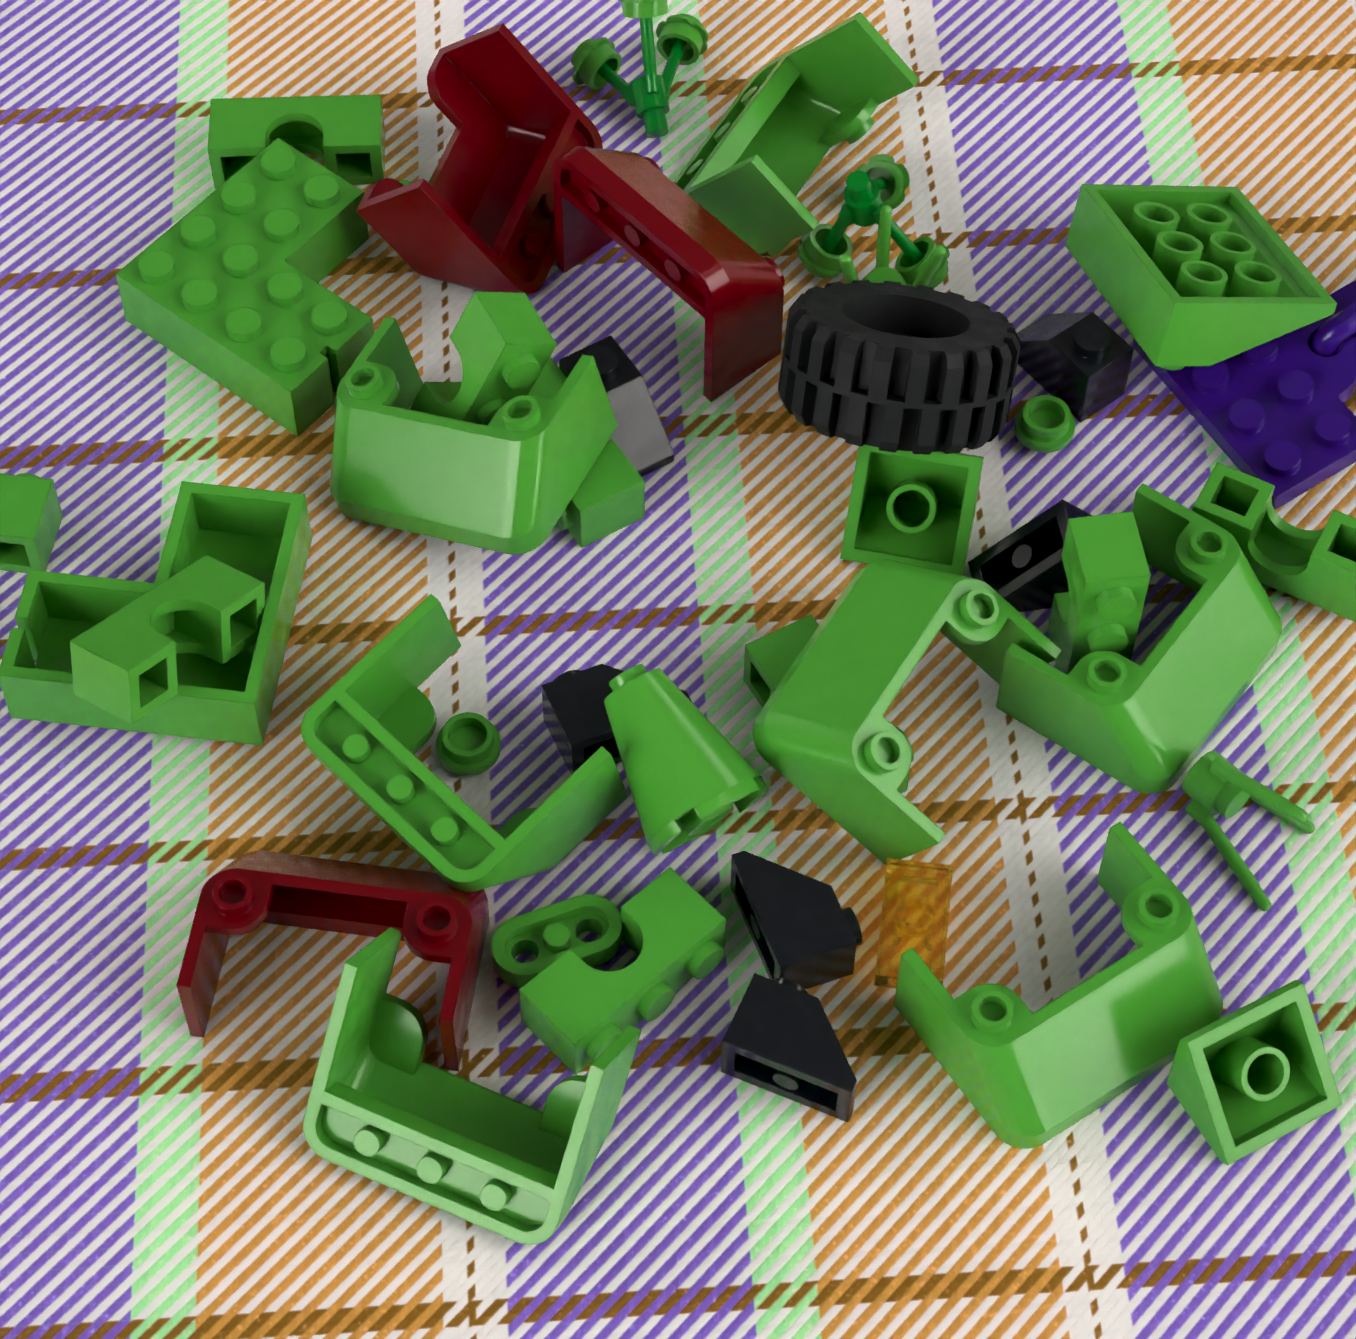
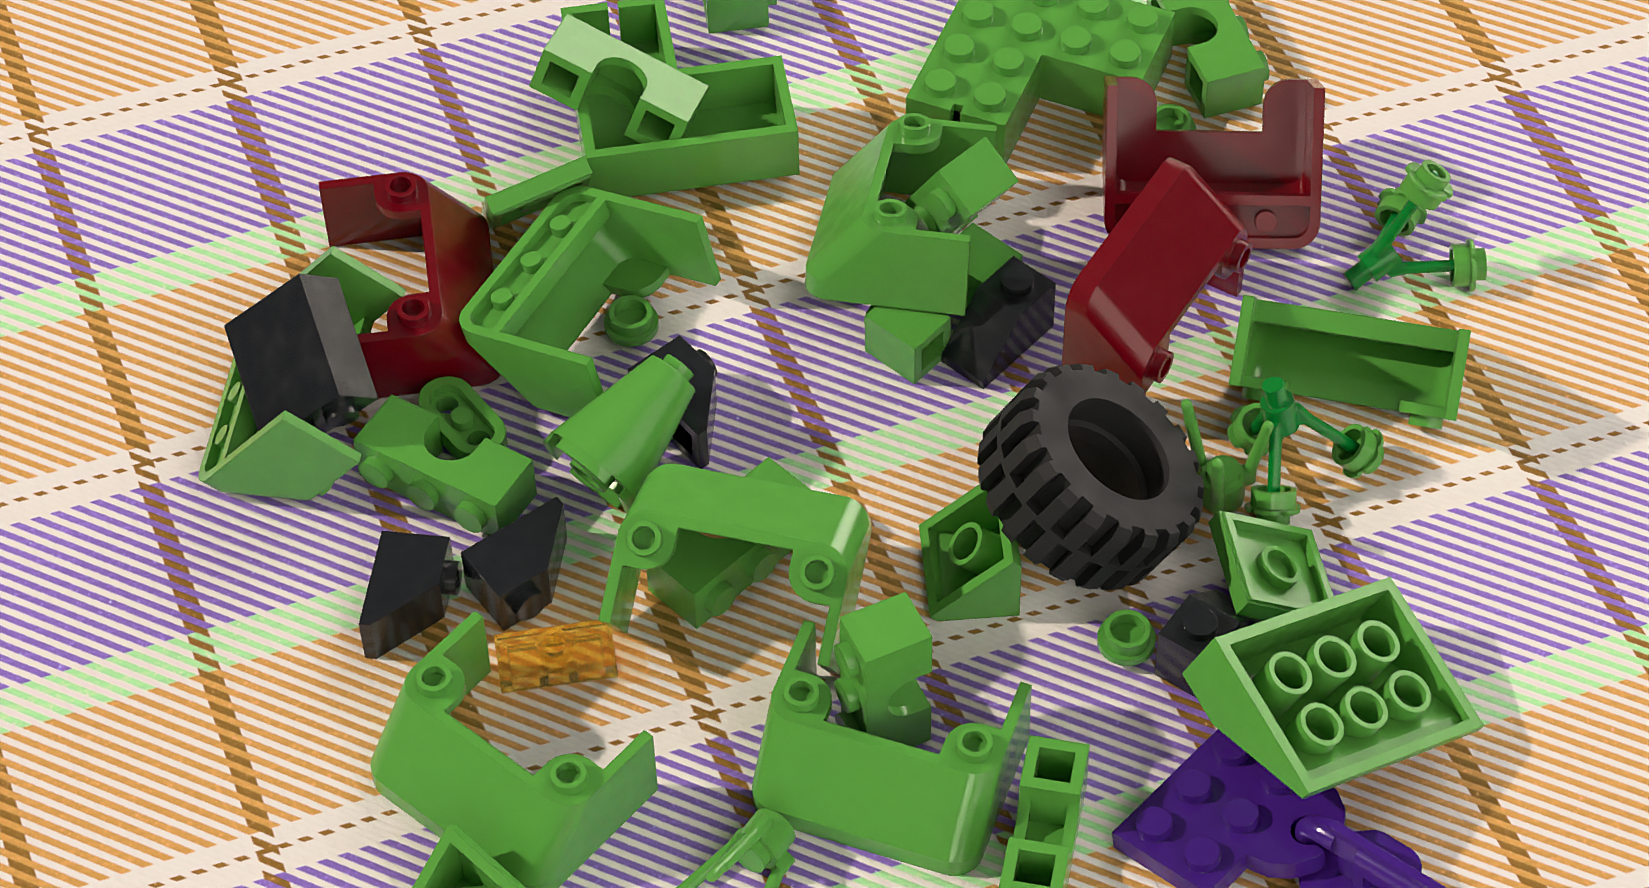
camera: 75 degrees right, 5 degrees down
(268, 773) = (534, 193): none -> bright green tile
(468, 1060) = (302, 355): none -> black brick
(1018, 281) = (1268, 565): none -> bright green tile
(1028, 562) = (965, 670): black slope -> none

